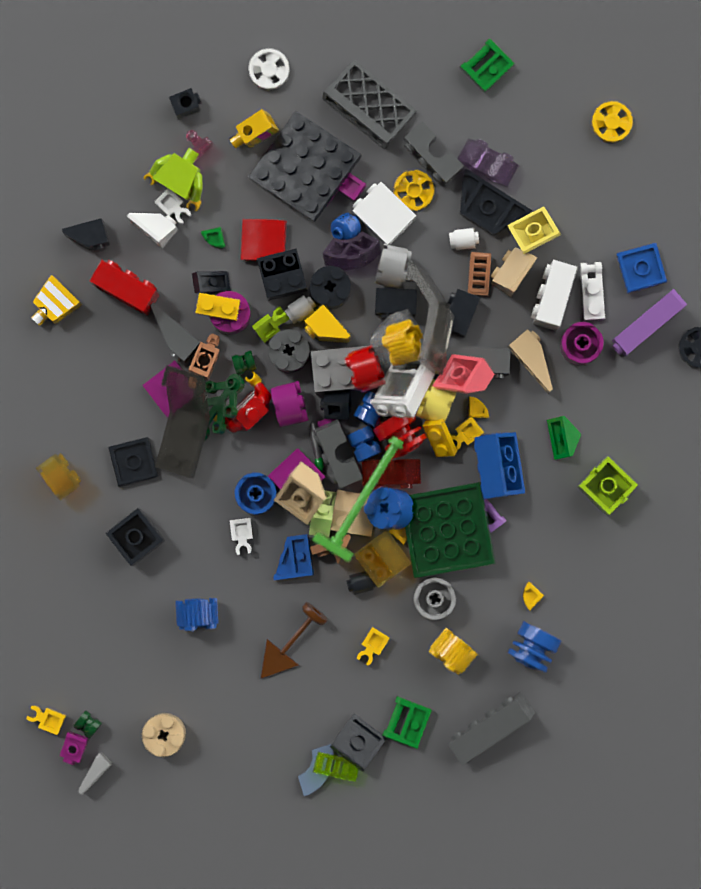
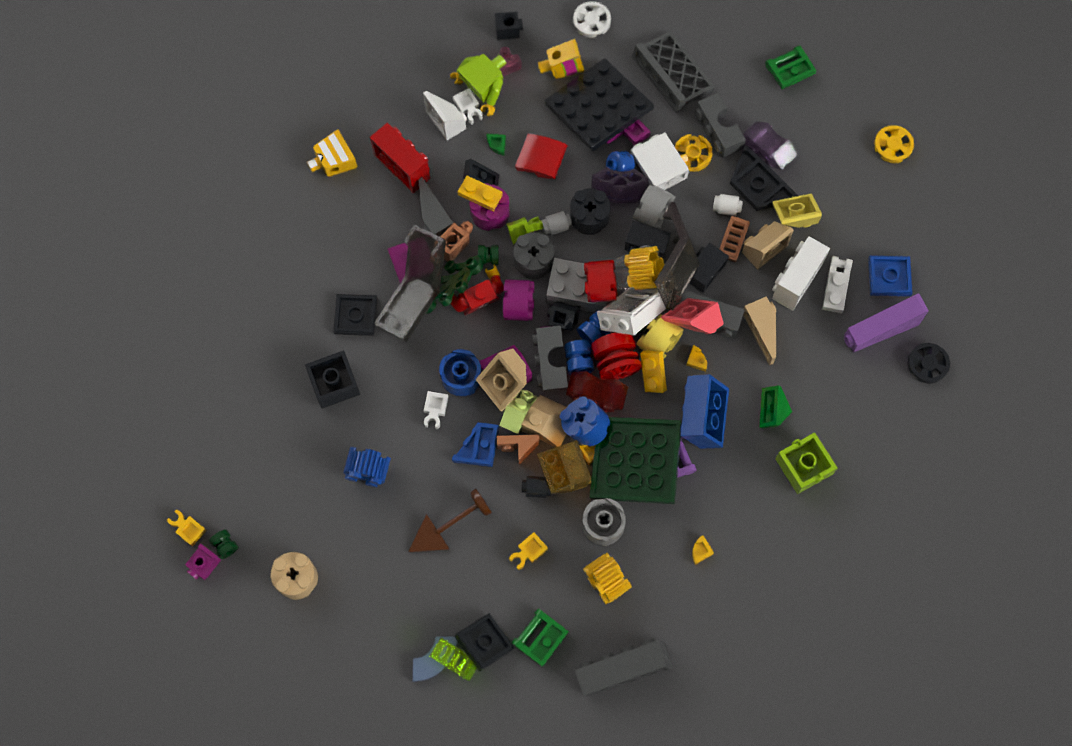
camera: 15 degrees right, 15 degrees down
(58, 476) = (281, 303): clear yellow brick -> none
(89, 234) = (383, 107): black slope -> none
(98, 768) = (215, 592): light grey slope -> none
(282, 274) = (548, 188): black slope -> none
(319, 463) = (531, 351): flat silver piece -> none
(326, 327) = (574, 241): yellow slope -> none
(335, 543) = (521, 434): bright green tile -> none
(467, 432) = (680, 375): yellow plate -> none
(534, 647) = (687, 601): blue wheel -> none
(589, 335) = (819, 335): magenta brick -> none

